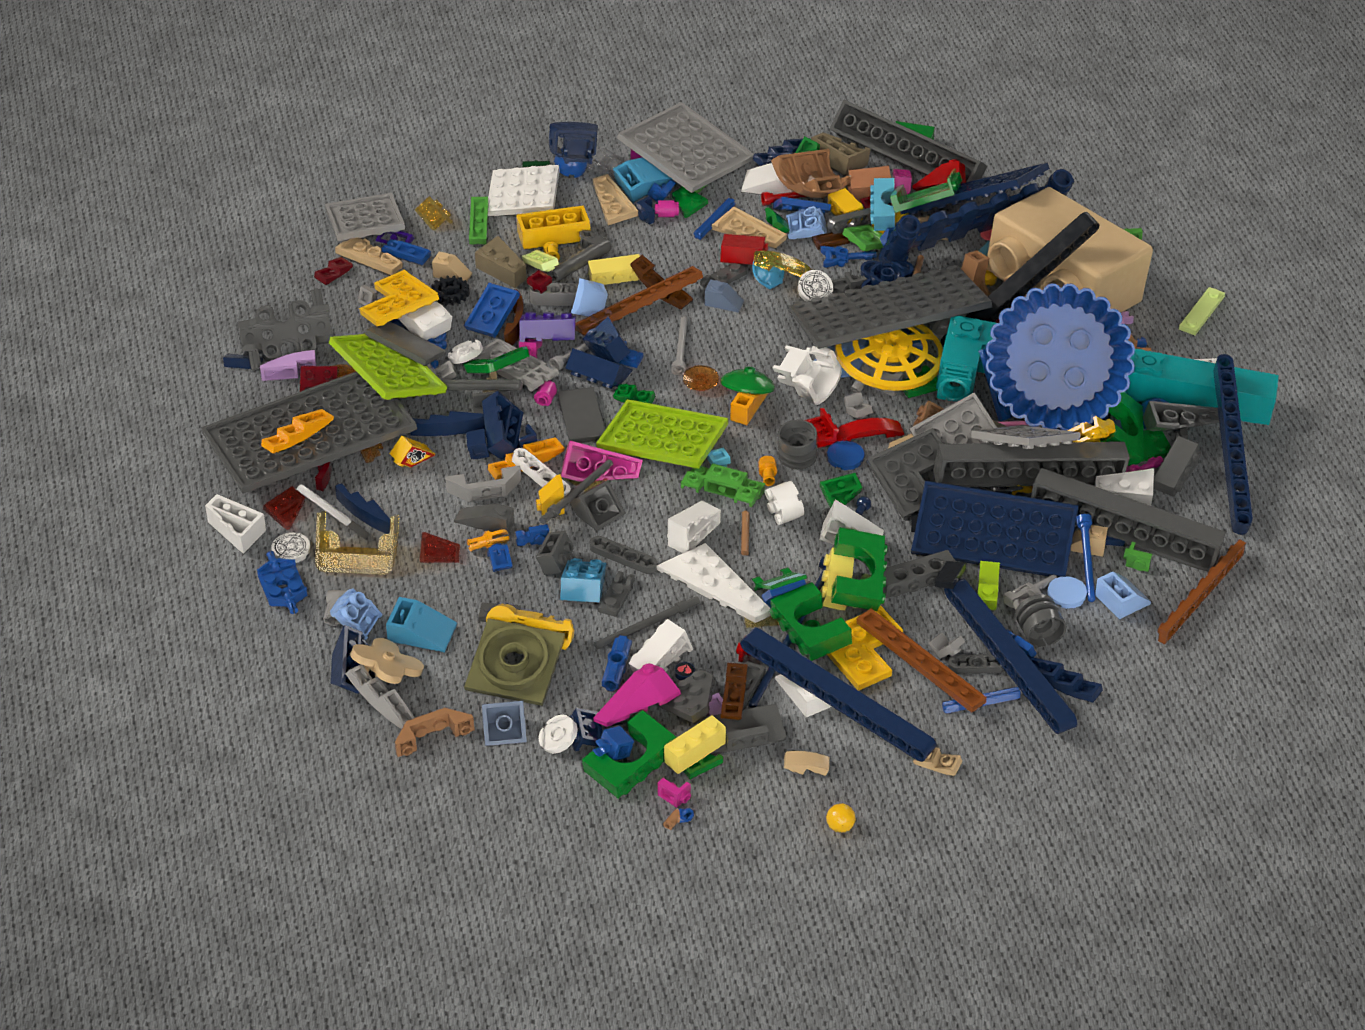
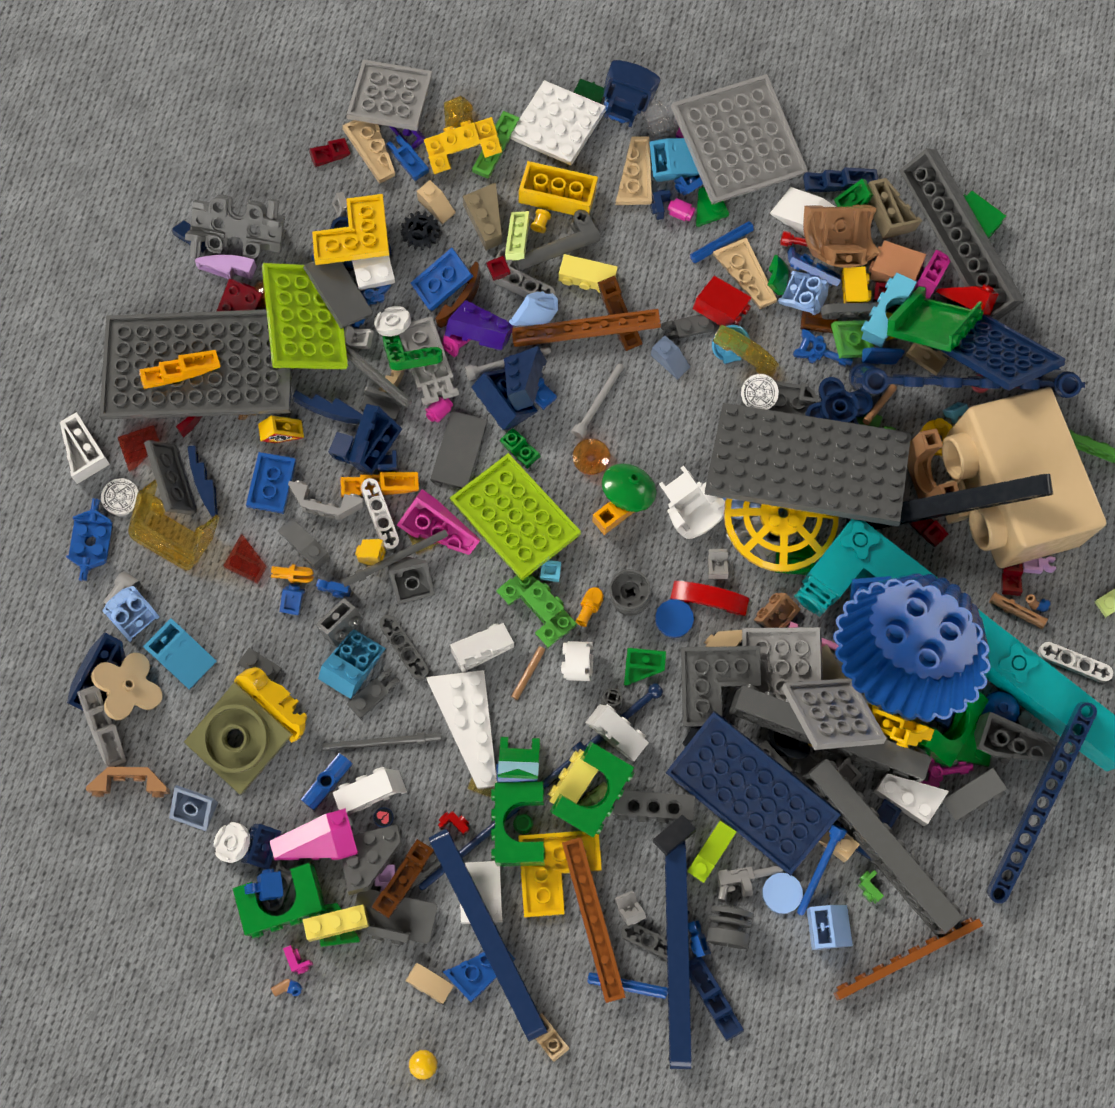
camera: 25 degrees right, 30 degrees up
(427, 490) = (270, 482): none -> blue plate
(449, 219) = (462, 138): none -> yellow bracket
(826, 430) = (665, 578): red bracket -> none
(844, 742) = (472, 976): none -> blue wing

